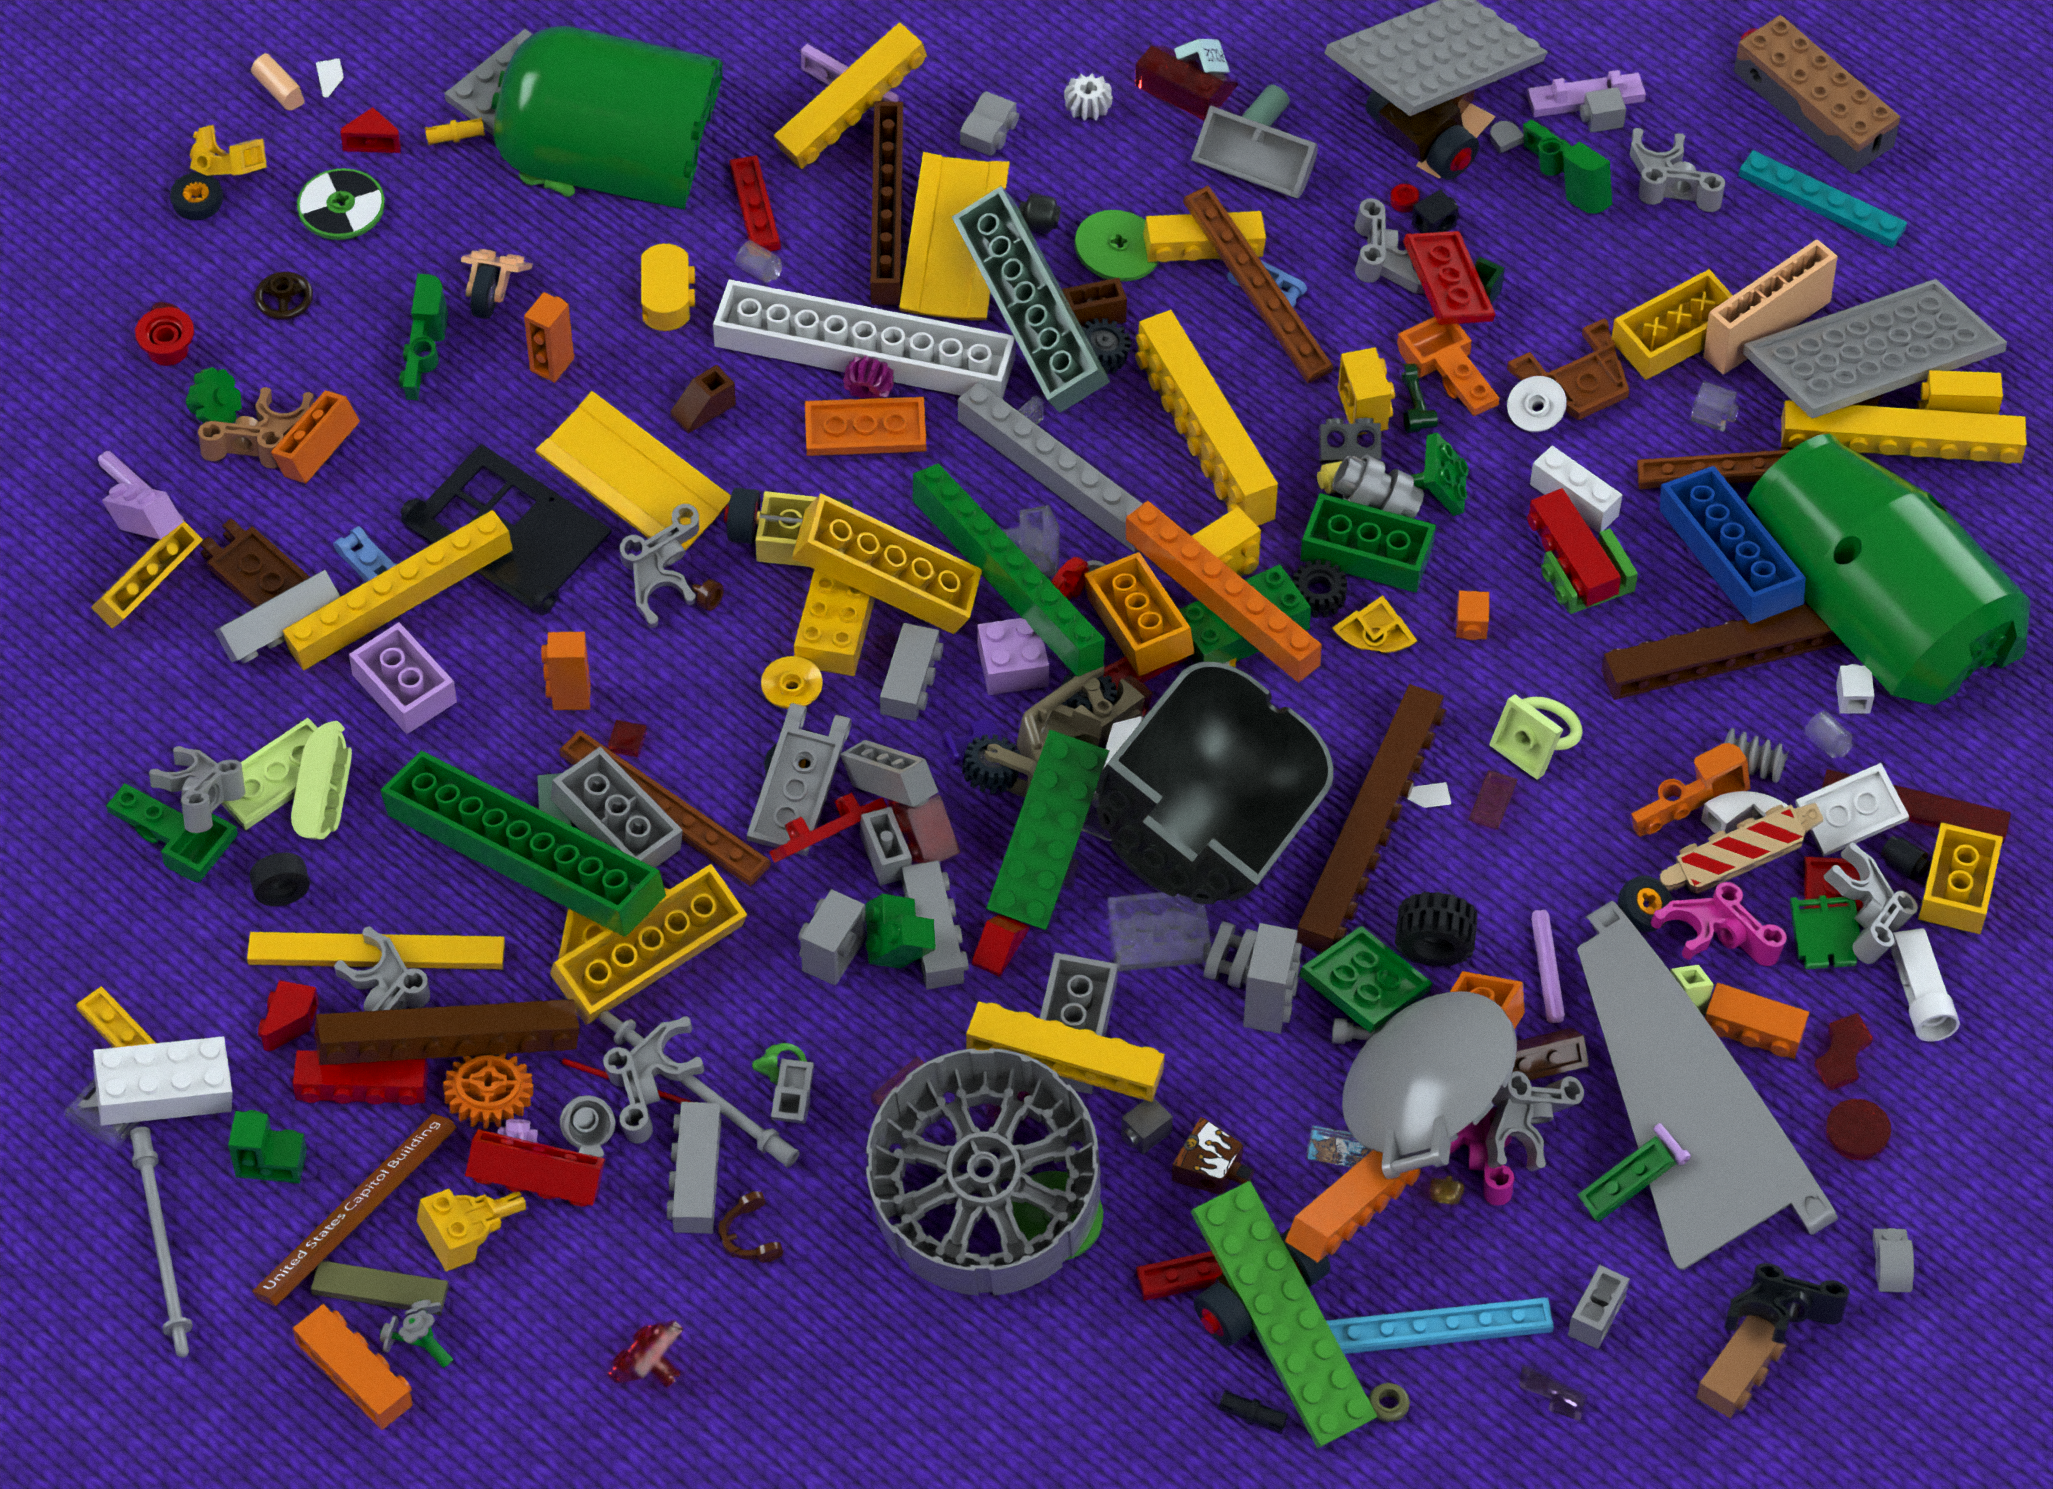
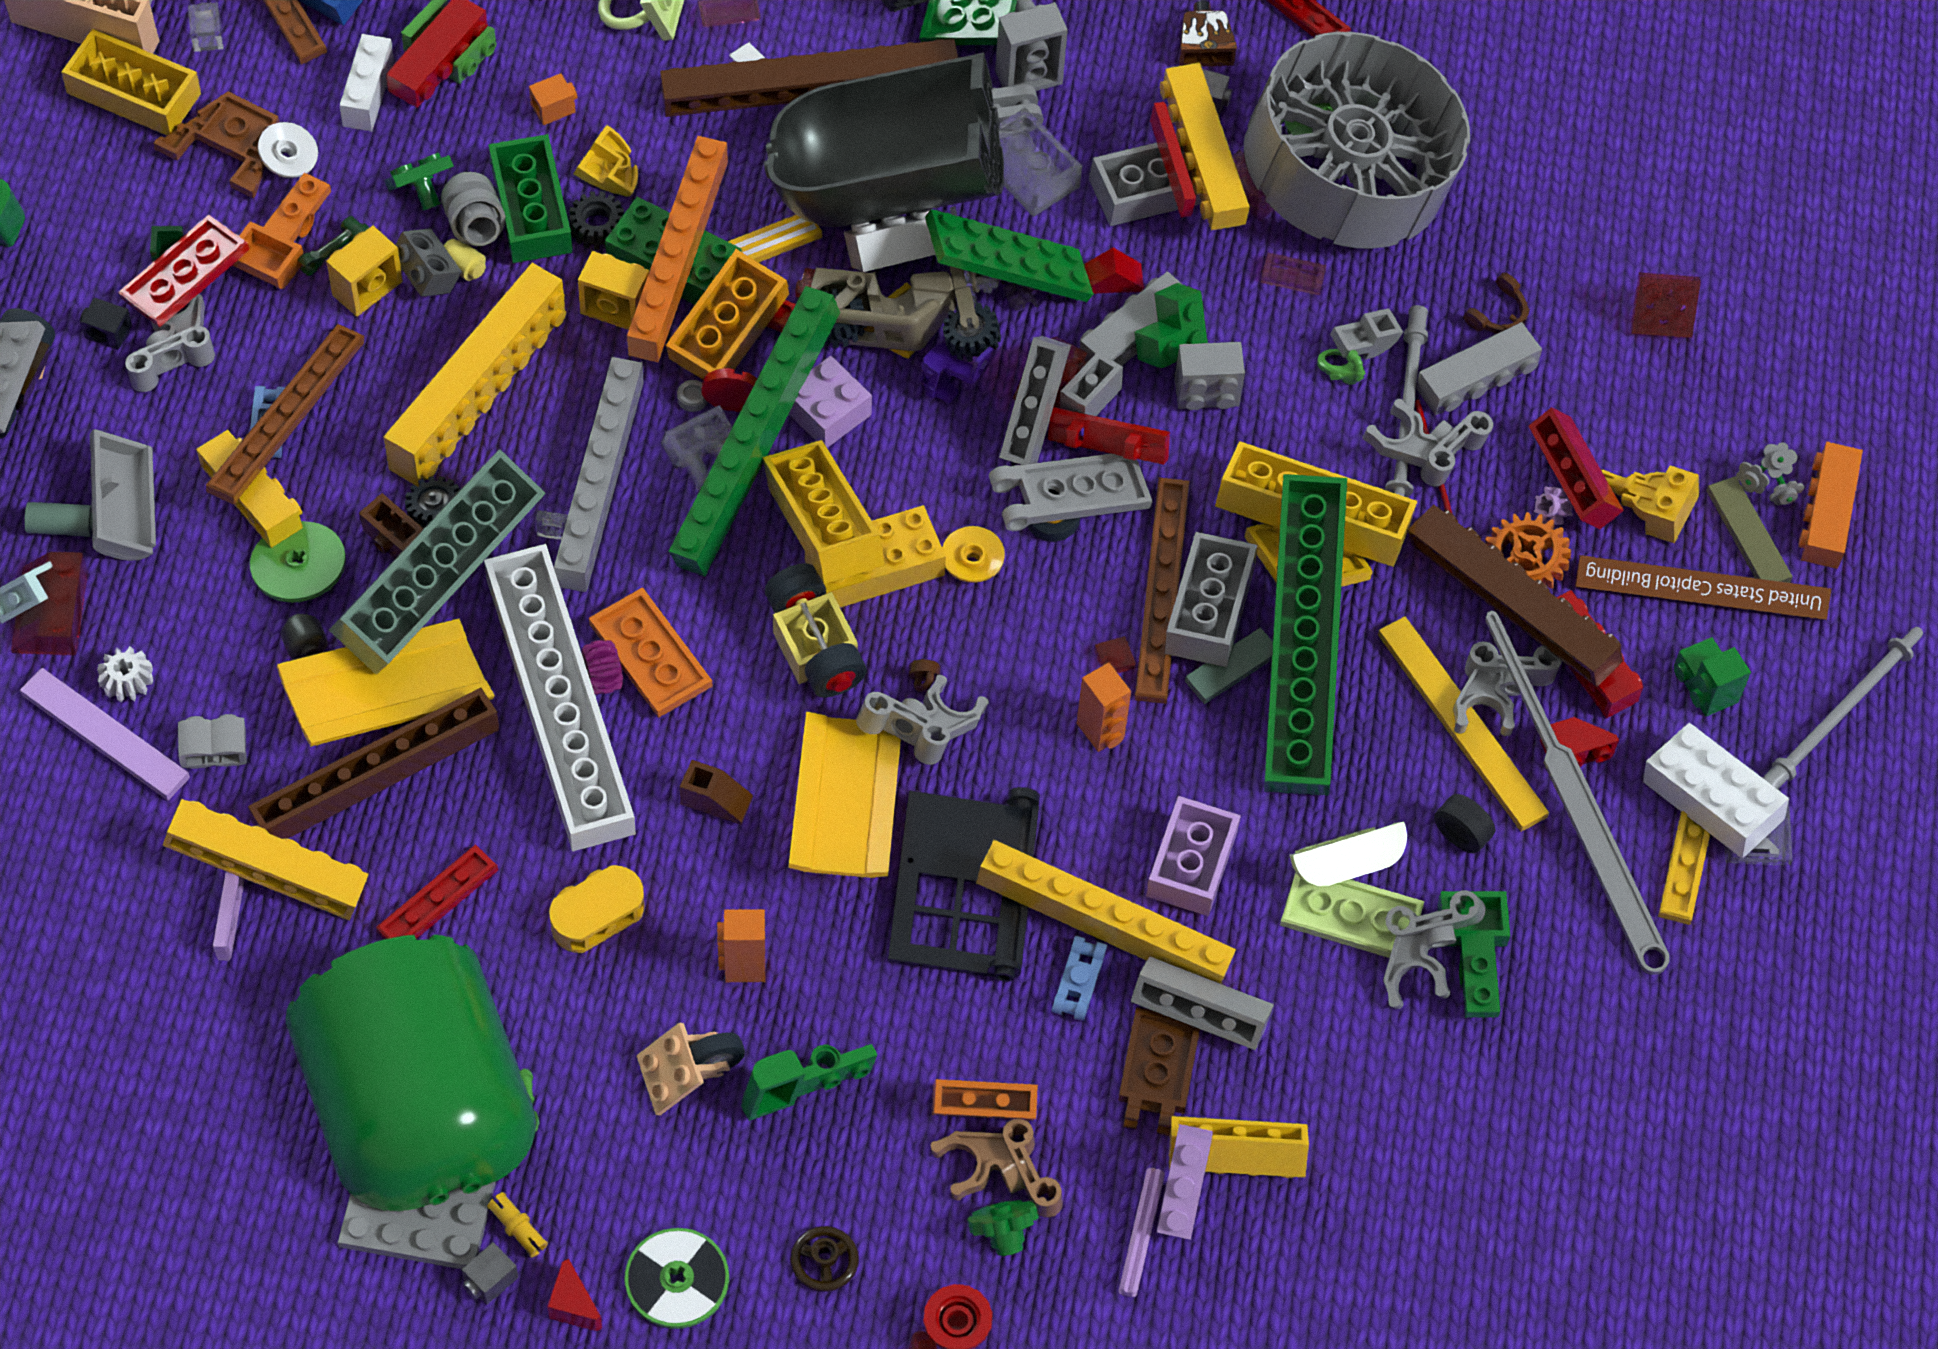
camera: 125 degrees left, 5 degrees up
(223, 970) = (1586, 816): none -> light grey piece
(430, 97) = (489, 1274): none -> flat silver brick
(587, 1124) = (1504, 461): light grey hat -> none
(759, 261) = (514, 844): clear brick -> none
(911, 672) = (898, 471): light grey brick -> none
(1050, 69) = (105, 734): none -> lavender tile
(1067, 1013) = (1173, 159): none -> red tile
(1404, 197) = (92, 364): red tile -> none

